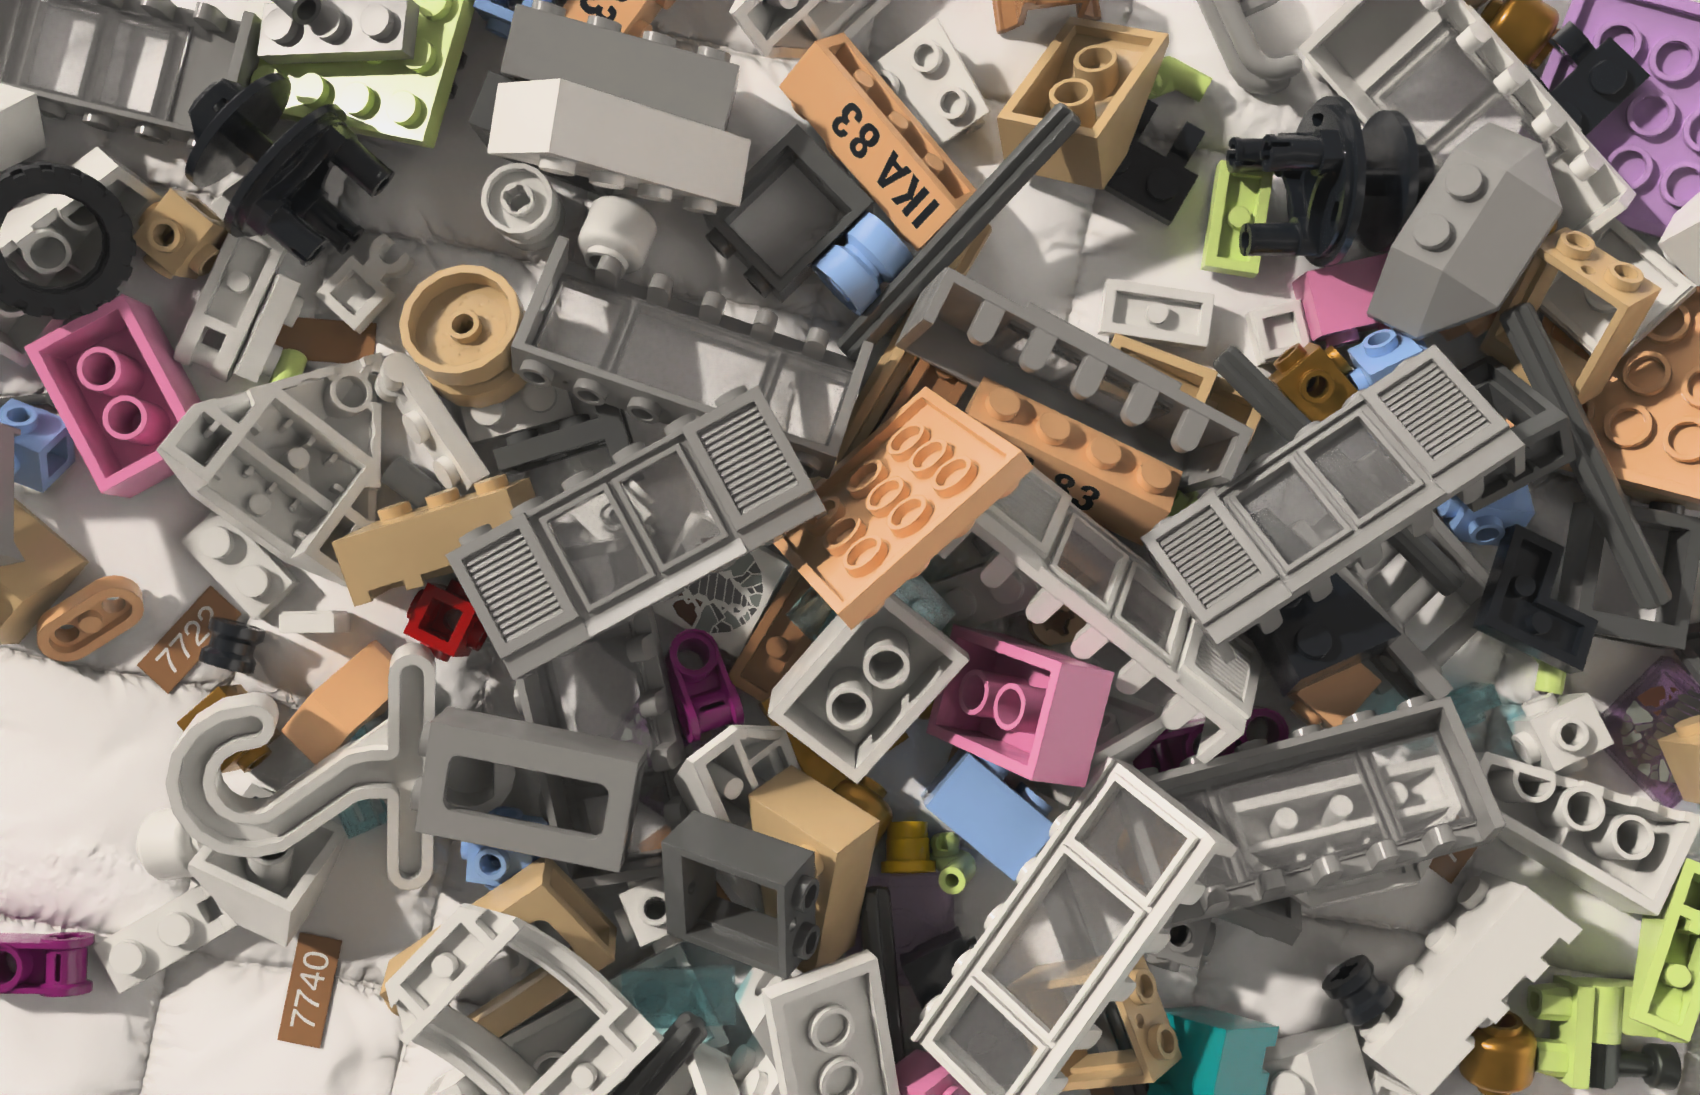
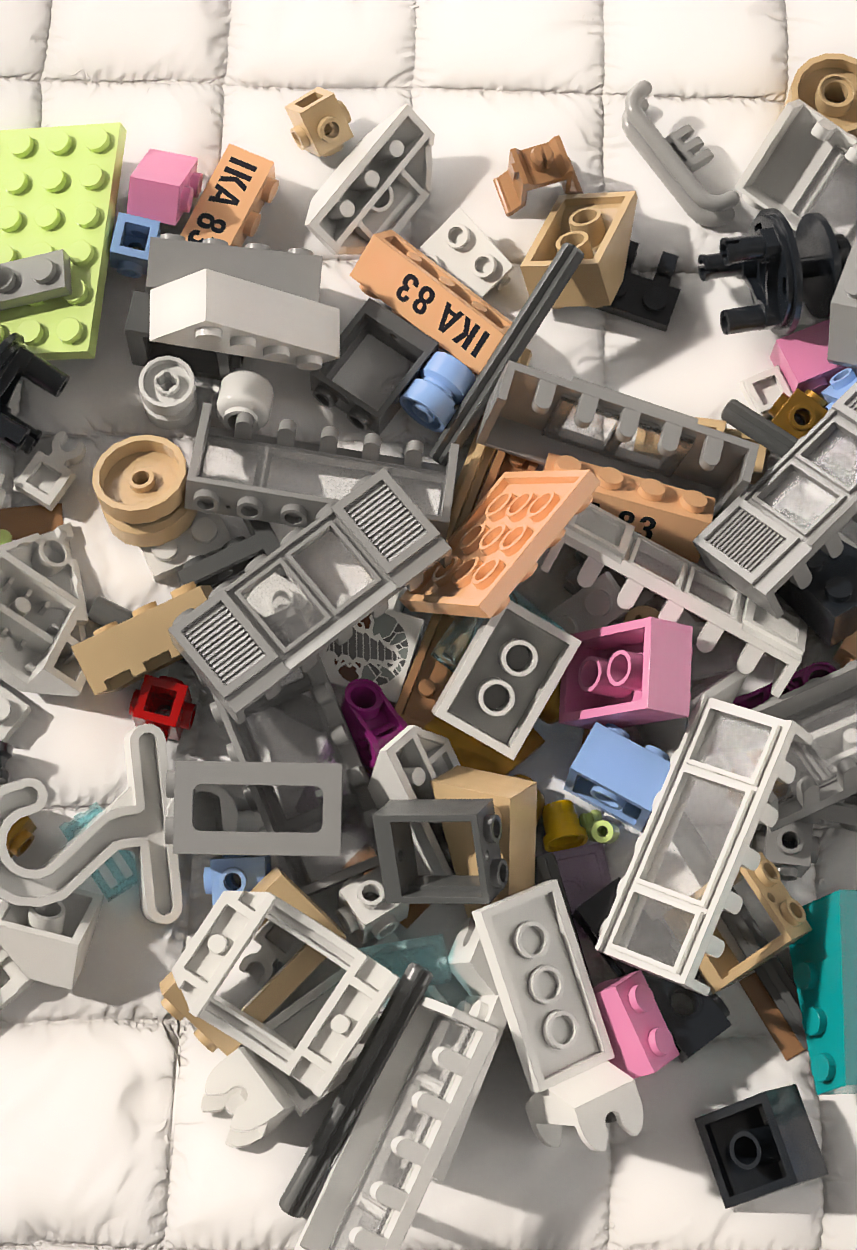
camera: 15 degrees left, 15 degrees down
(309, 990) = (91, 1034): medium nougat sticker -> none
(314, 622) = (52, 732): white tile -> none
(342, 704) = (87, 788): light nougat slope -> none
(430, 423) = (119, 561): white plate -> none
(1156, 314) = (677, 390): white plate -> none
(1181, 77) = (651, 223): yellowish green arm -> none
(1234, 201) = (709, 301): yellowish green plate -> none

